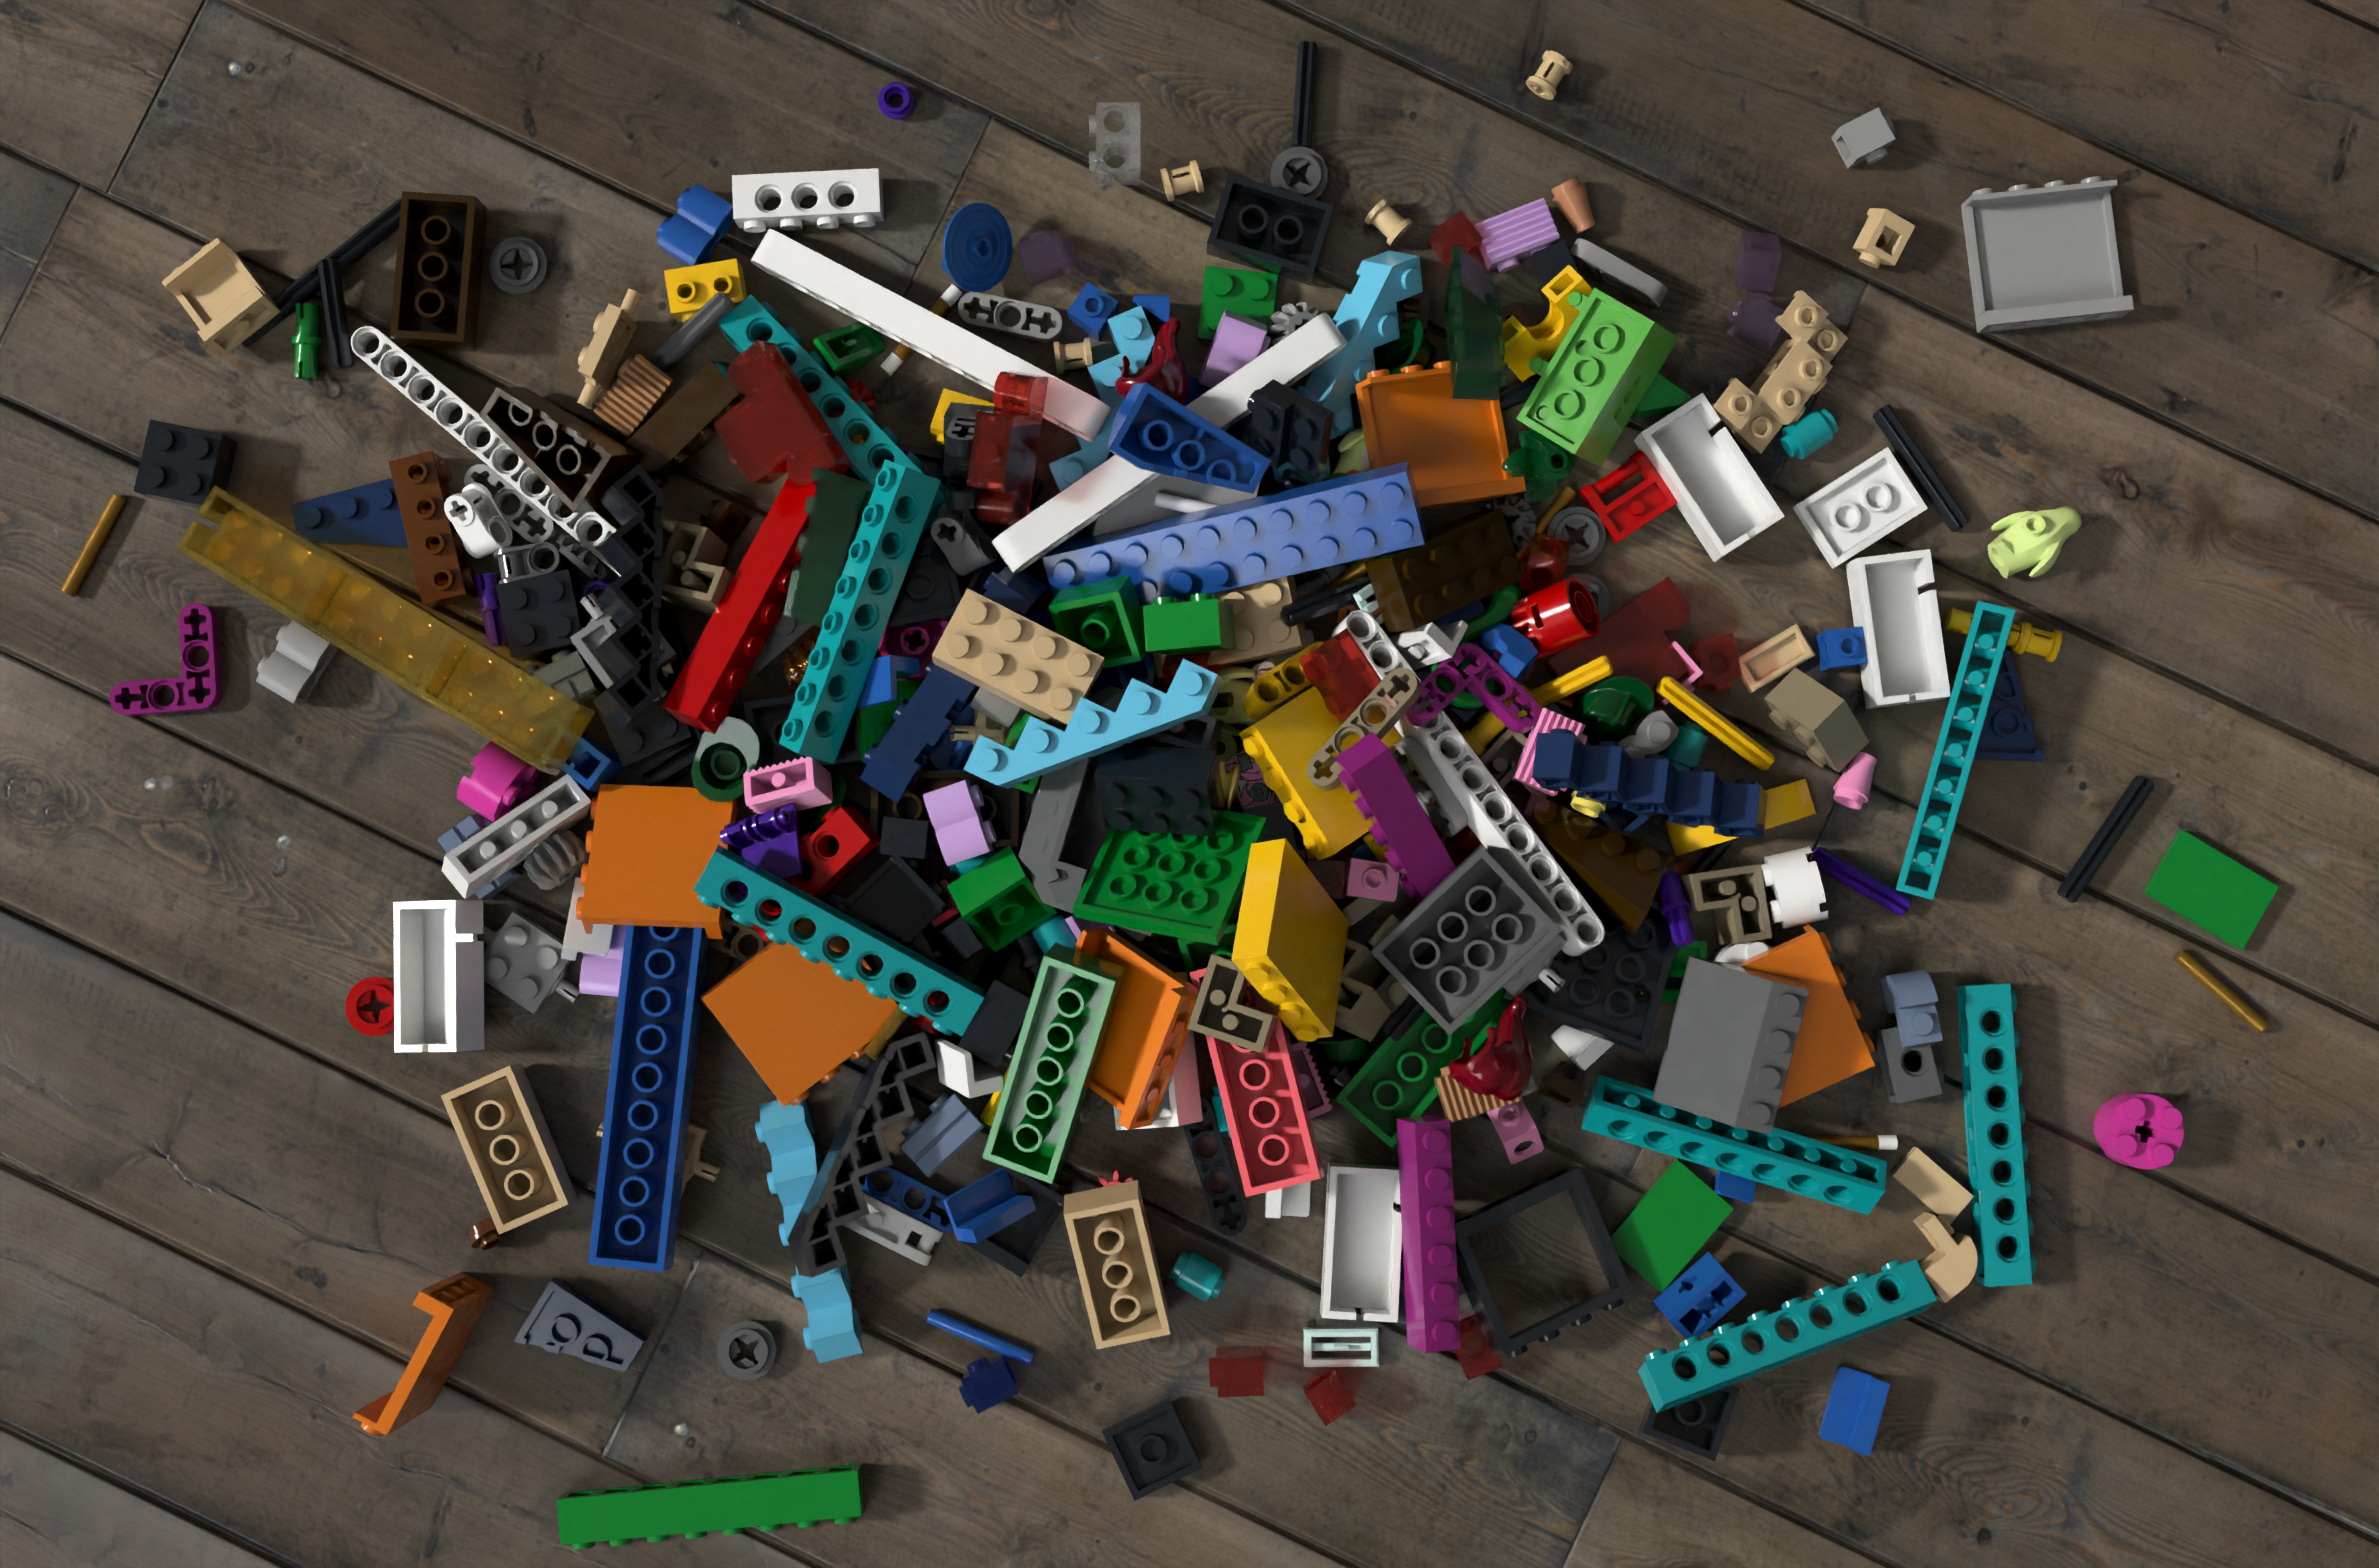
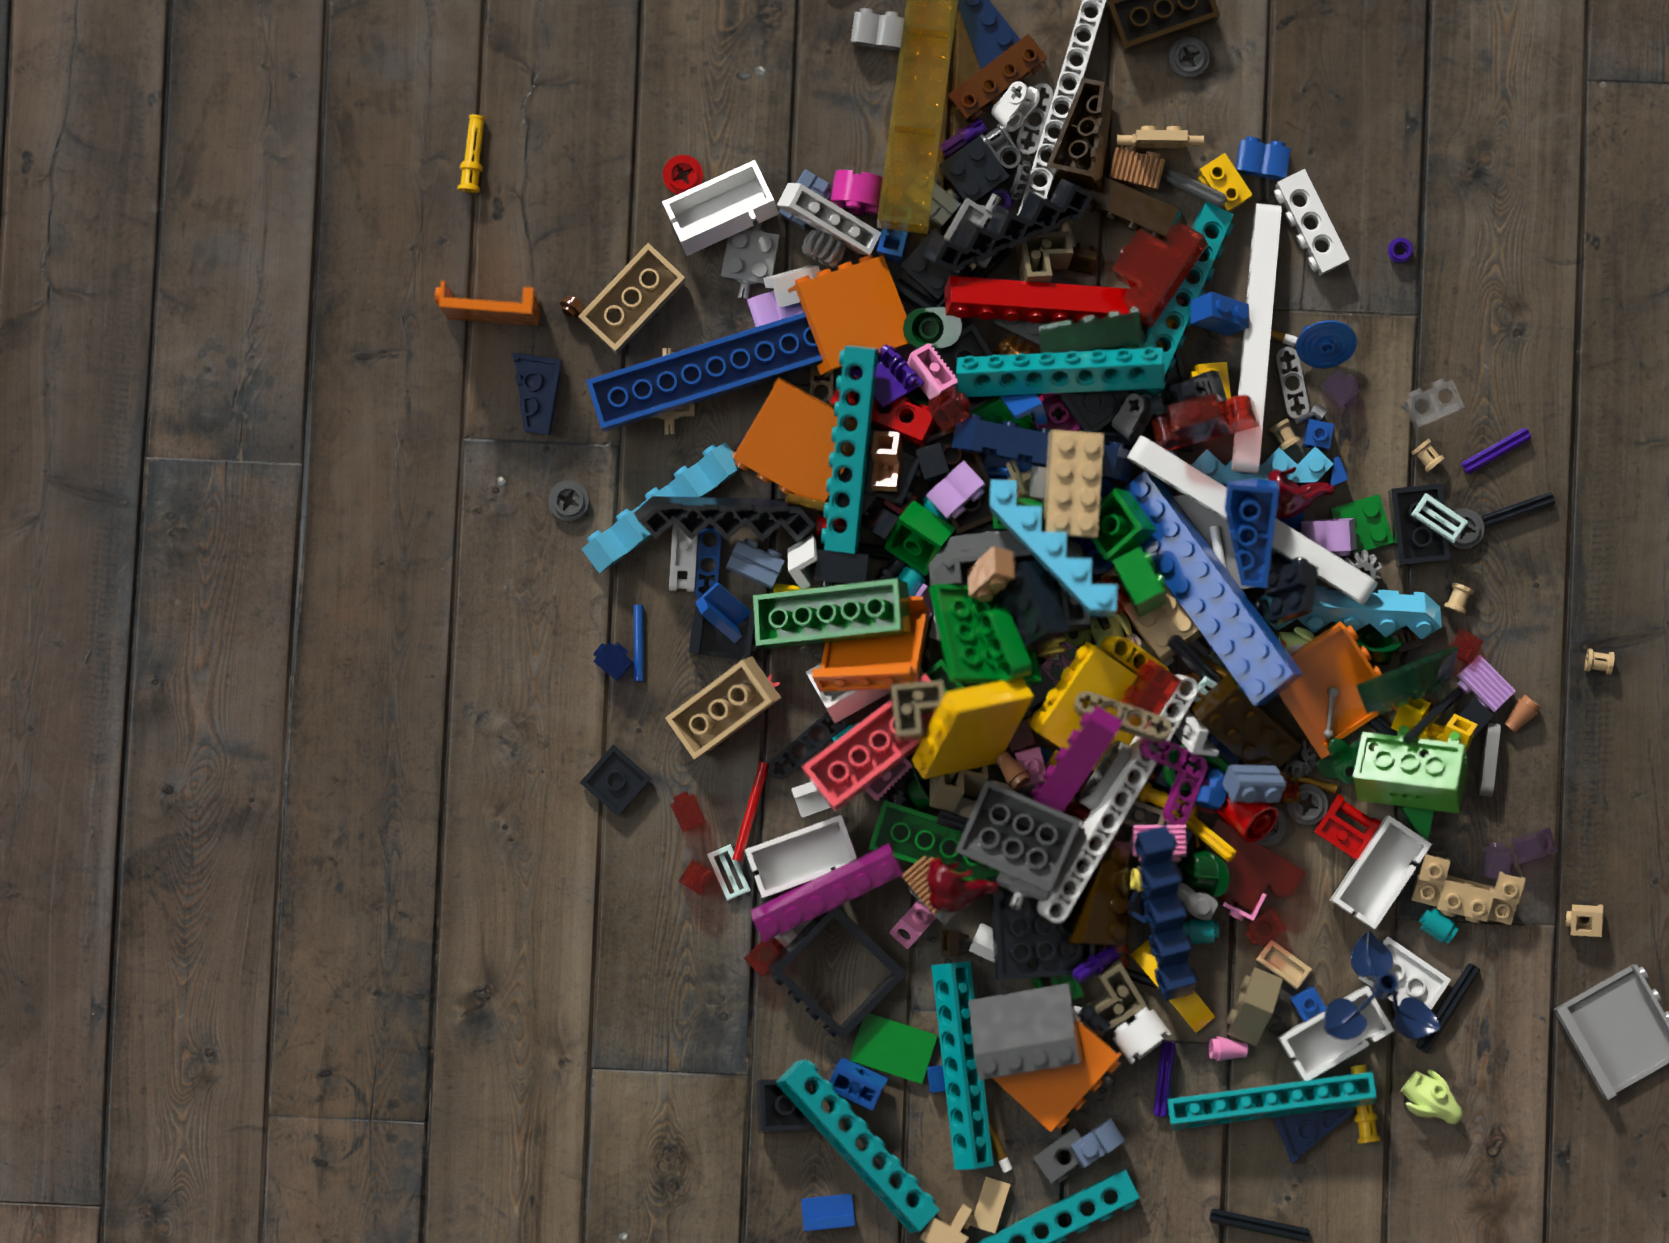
camera: 70 degrees right, 0 degrees up
(234, 1293) = (476, 124): none -> yellow pin
(711, 1505) = (465, 521): green brick -> none
(842, 783) = (949, 408): none -> clear red brick
(849, 348) = (1228, 286): green slope -> none
(874, 367) = (1219, 313): none -> blue brick
(878, 896) = (888, 461): none -> nougat brick
(1063, 300) = (1317, 412): none -> flat silver hand
(1092, 824) = (990, 574): none -> medium nougat brick
(1197, 847) = (1004, 644): none -> green beam
(1197, 1276) = (735, 762): teal brick -> none
(1214, 90) = (1496, 450): none -> dark purple axle
(1272, 1283) = (750, 812): none -> red bar
(1301, 179) = (1452, 538): none -> light aqua tile
(1370, 908) = (1013, 772): none -> nougat cone
(1444, 437) = (1332, 692): none -> light grey hinge
(1526, 592) = (1254, 783): none -> sand blue brick
(1533, 318) = (1433, 715): none -> black bar
(1715, 723) = (1224, 942): yellow axle -> none
(1752, 943) = (1093, 1019): none -> black pin
(1864, 138) = (1646, 882): light grey brick -> none
(1921, 516) = (1374, 959): none -> dark blue plant

